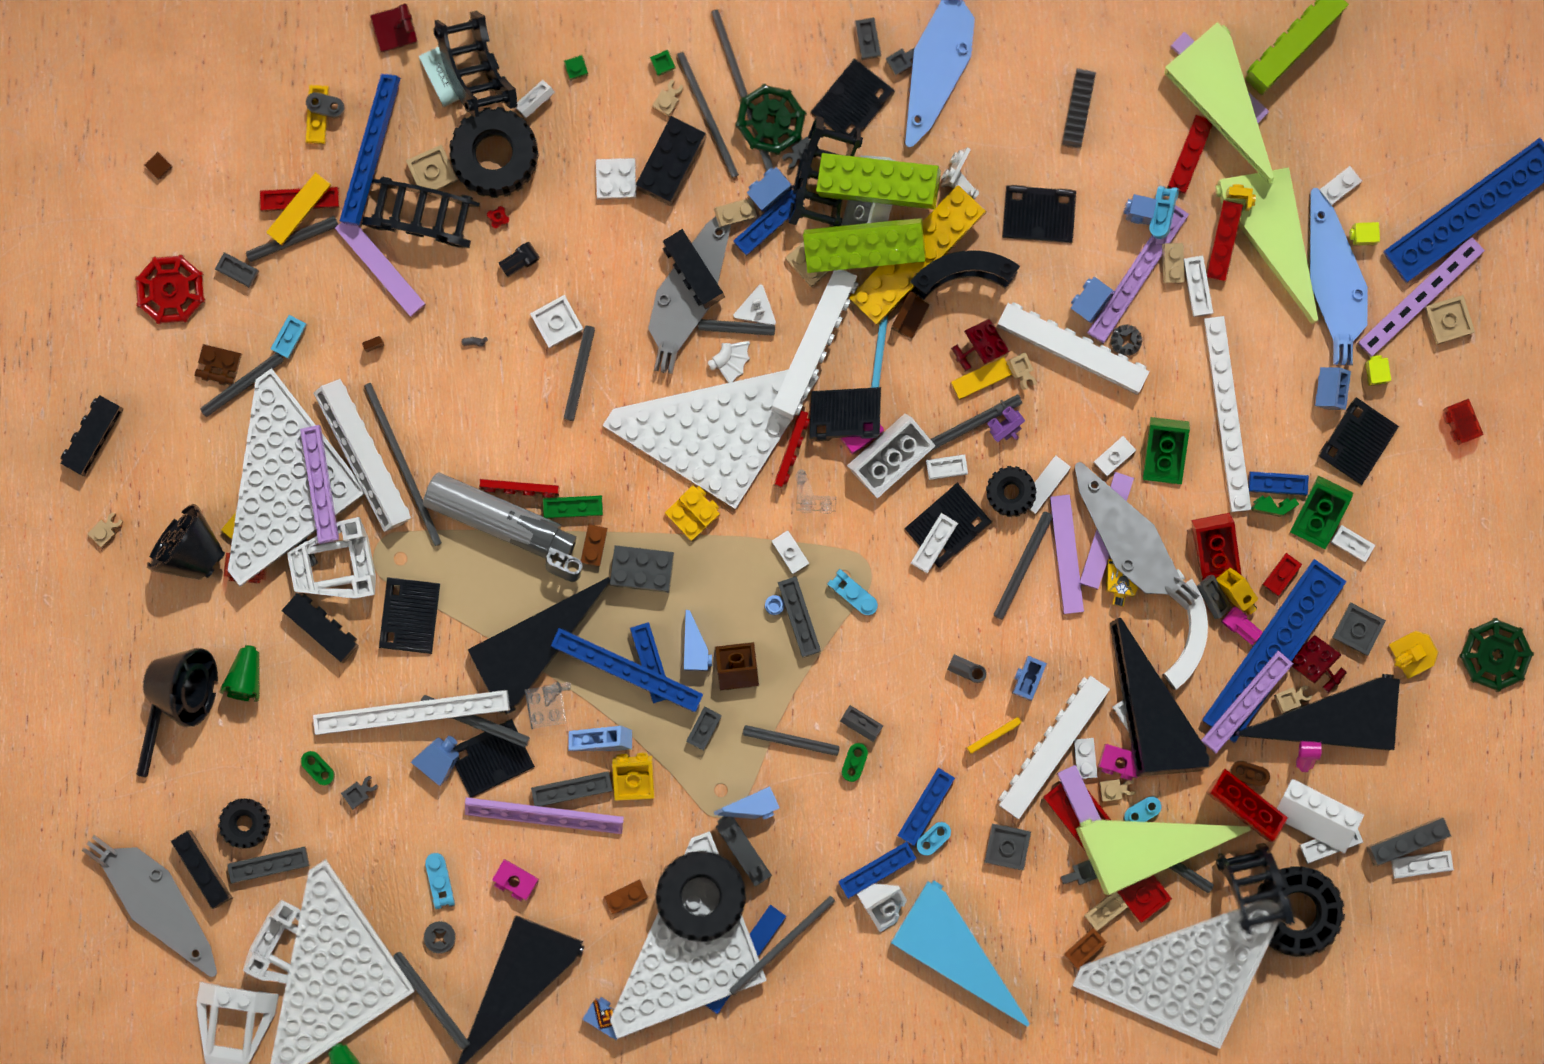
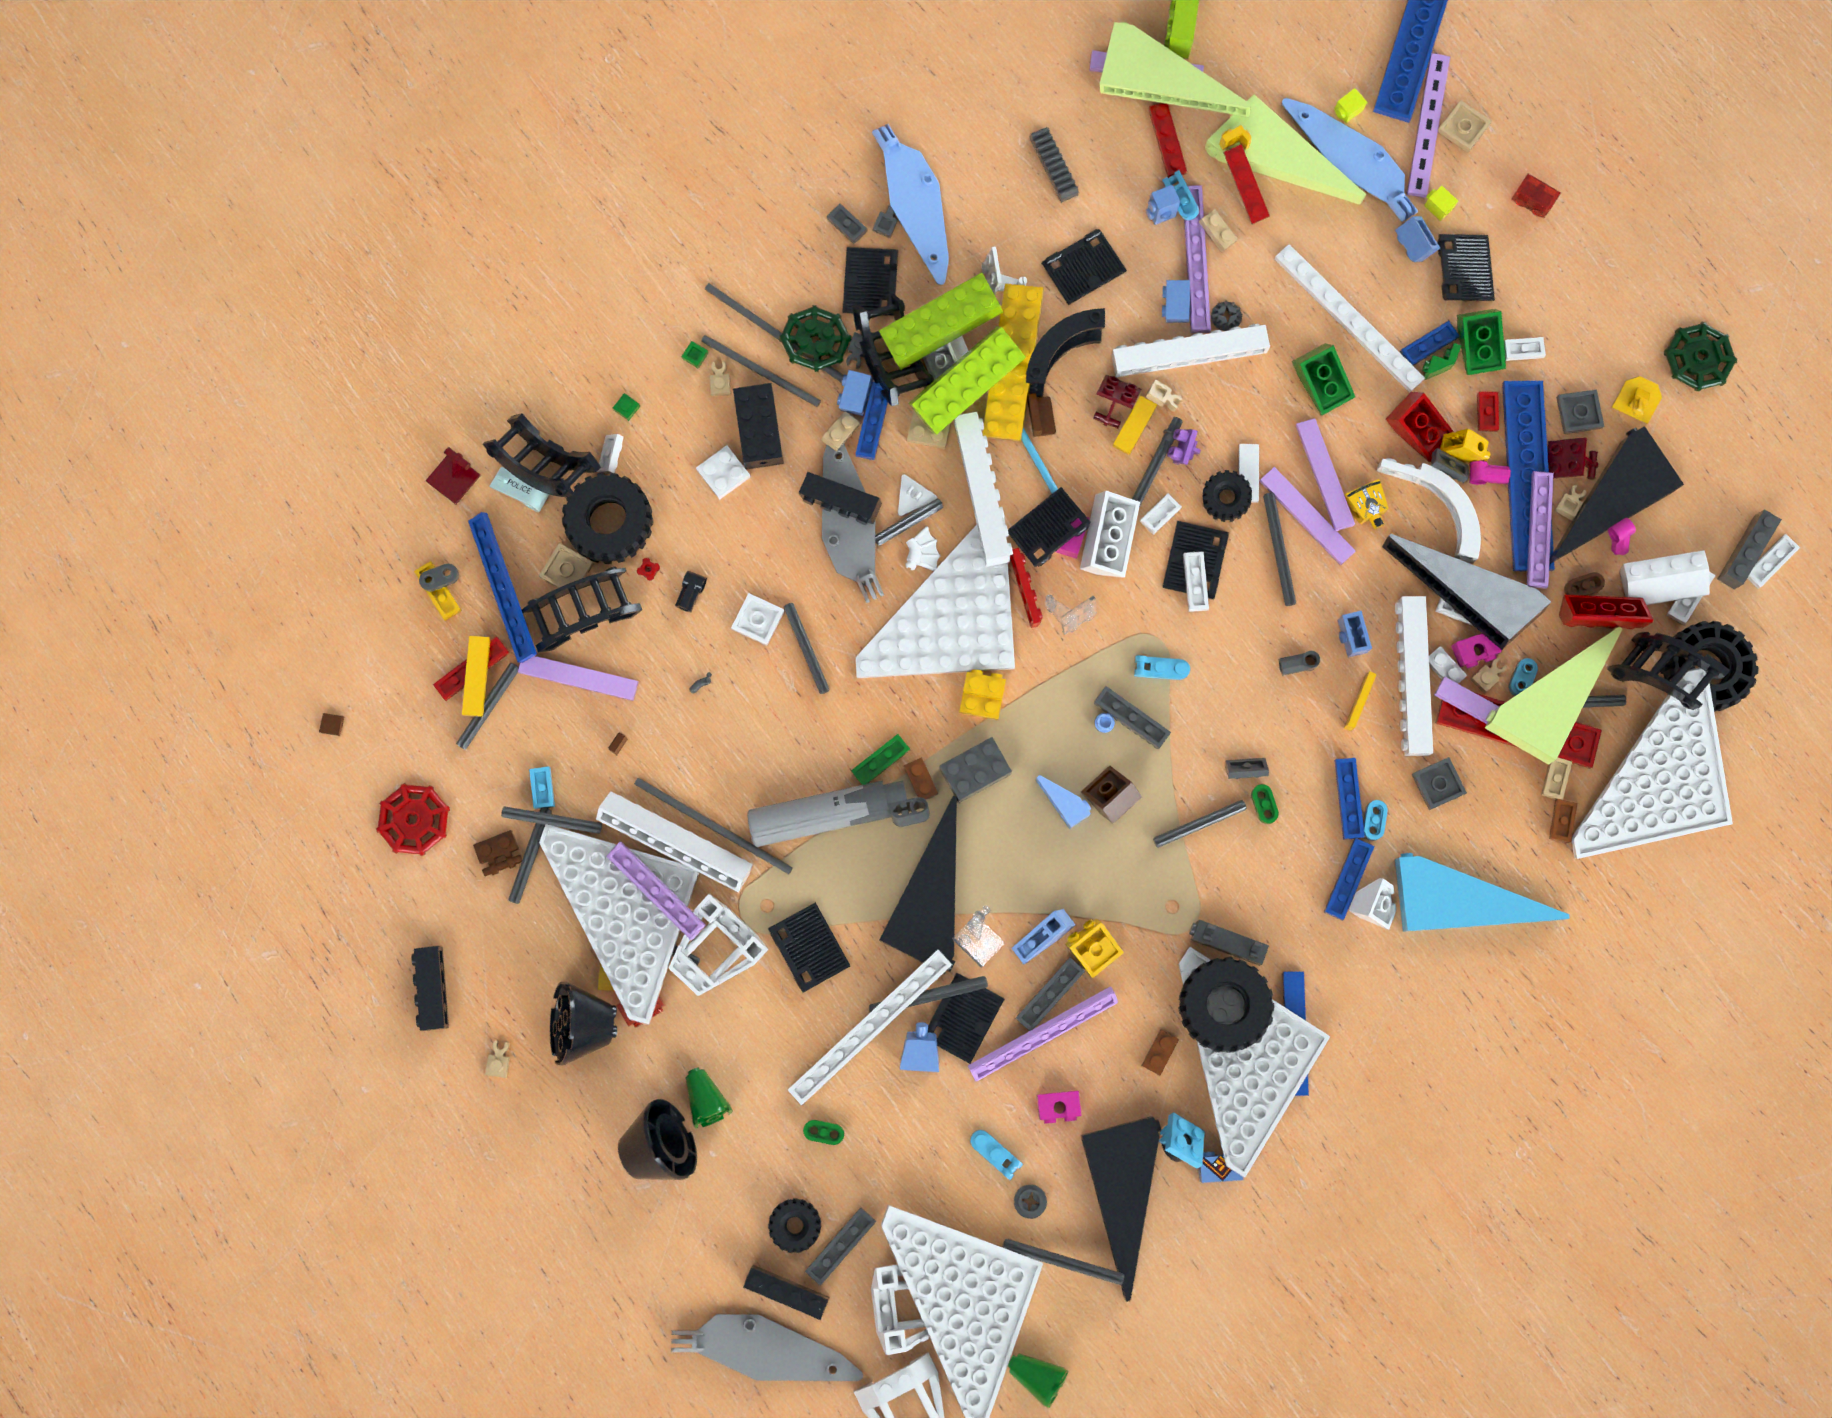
camera: 35 degrees left, 5 degrees down
(149, 741) = (662, 1214): black axle -> none
(237, 270) = (459, 763): dark grey plate -> none
(278, 369) = (552, 820): none -> dark grey axle
(320, 628) = (741, 1011): black brick -> none
(357, 794) = (872, 1130): dark grey plate -> none
(510, 488) = (833, 772): red plate -> none
(591, 976) = (1183, 1141): none -> medium azure piece
(626, 670) = (1024, 861): blue plate -> none
(647, 652) = (1038, 842): blue plate -> none
(704, 728) = (1122, 865): dark grey plate -> none
(751, 807) = (1211, 898): light blue slope -> none
(781, 945) = (1320, 999): dark grey piece -> none
(790, 552) = (1085, 671): white plate -> none
(1082, 873) = (1514, 761): dark grey plate -> none
(1114, 456) = (1286, 412): white plate -> none
(1131, 540) = (1353, 466): light grey wing -> none
(1198, 286) = (1251, 235): white plate -> none
(1340, 185) = (1302, 83): white plate -> none

